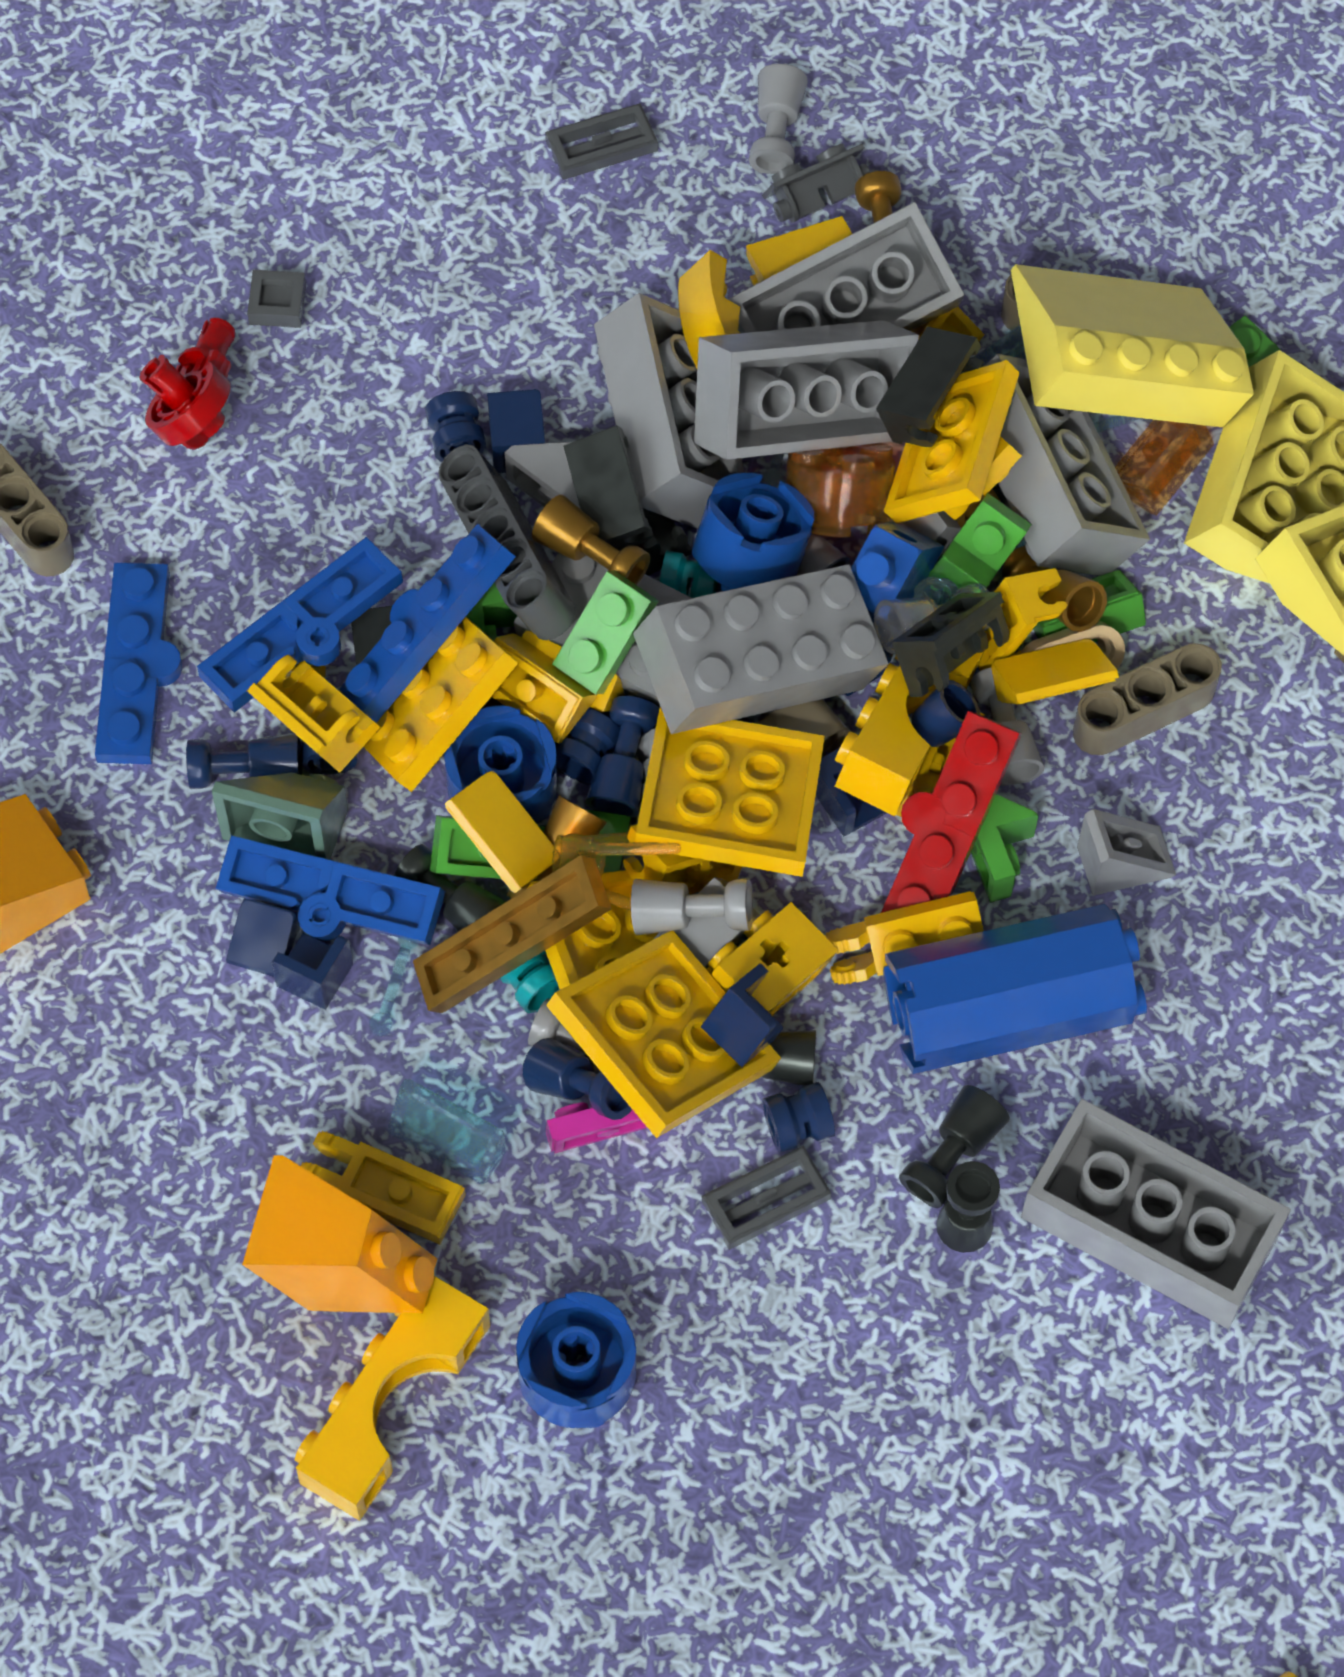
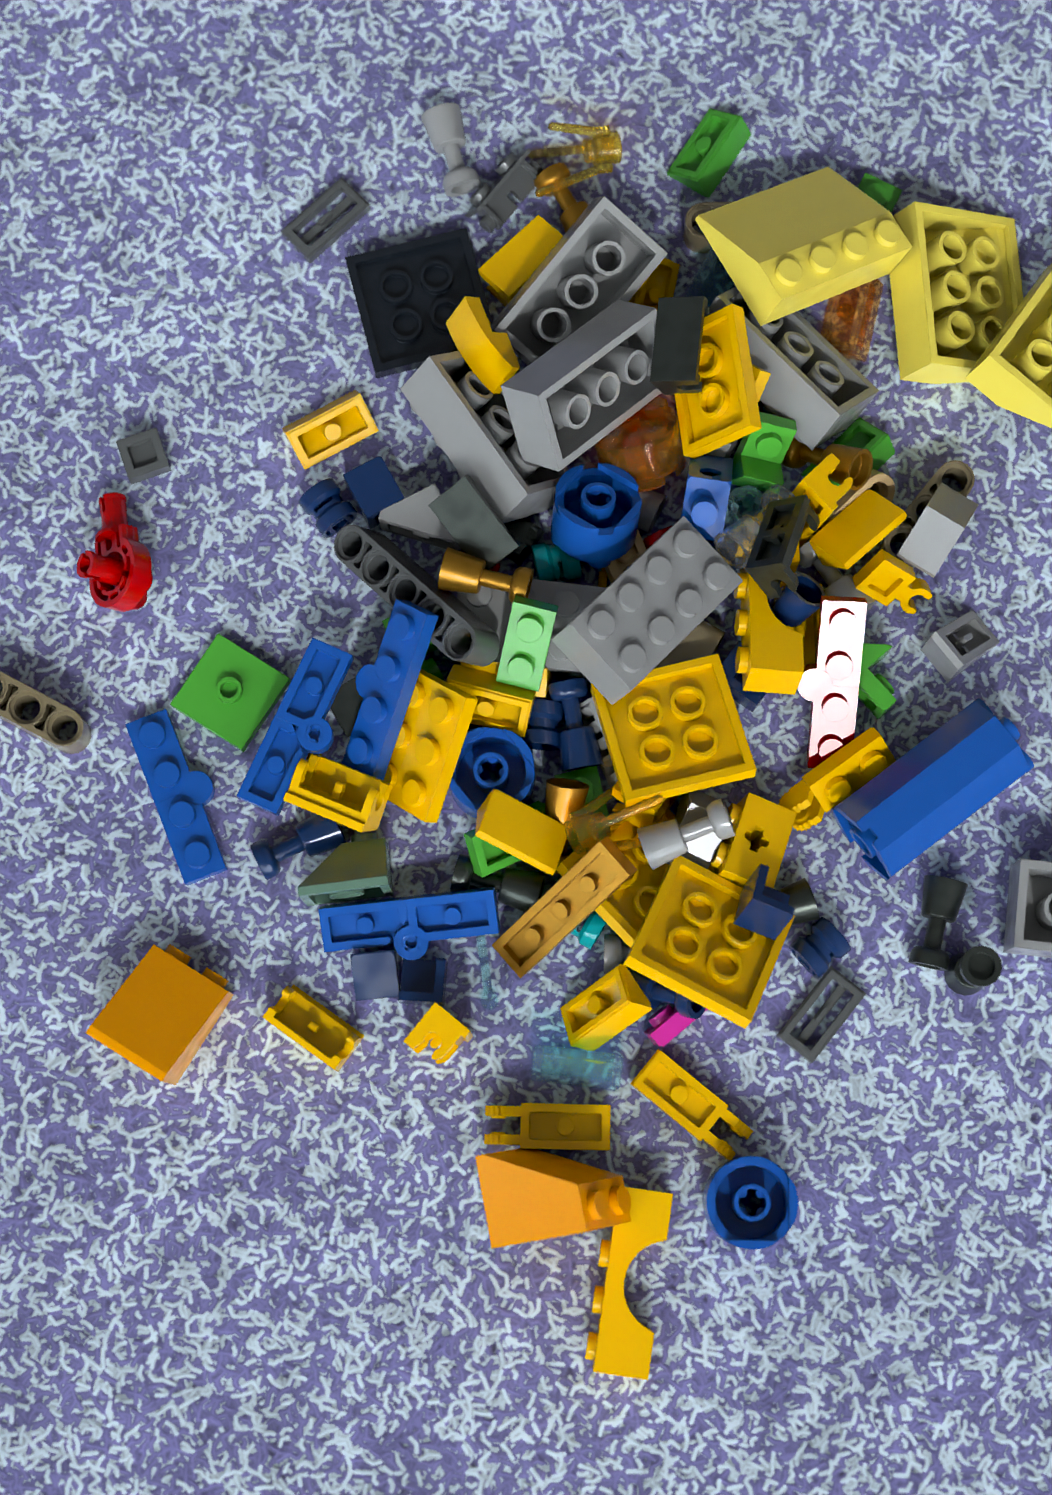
camera: 20 degrees left, 15 degrees up
(161, 965) = (314, 1027): none -> yellow hinge
(244, 573) = (230, 692): none -> bright green plate
(299, 1011) = (442, 1029): none -> yellow hinge
(500, 353) = (330, 429): none -> yellow slope
(510, 1076) = (604, 1009): none -> yellow slope
(558, 1222) = (687, 1102): none -> yellow hinge
(652, 238) = (410, 294): none -> black plate
(946, 178) = (601, 149): none -> clear yellow plant
(1069, 743) = (890, 579): none -> yellow plate
(1076, 231) = (710, 151): none -> bright green slope
(1146, 705) = (937, 530): none -> light grey slope

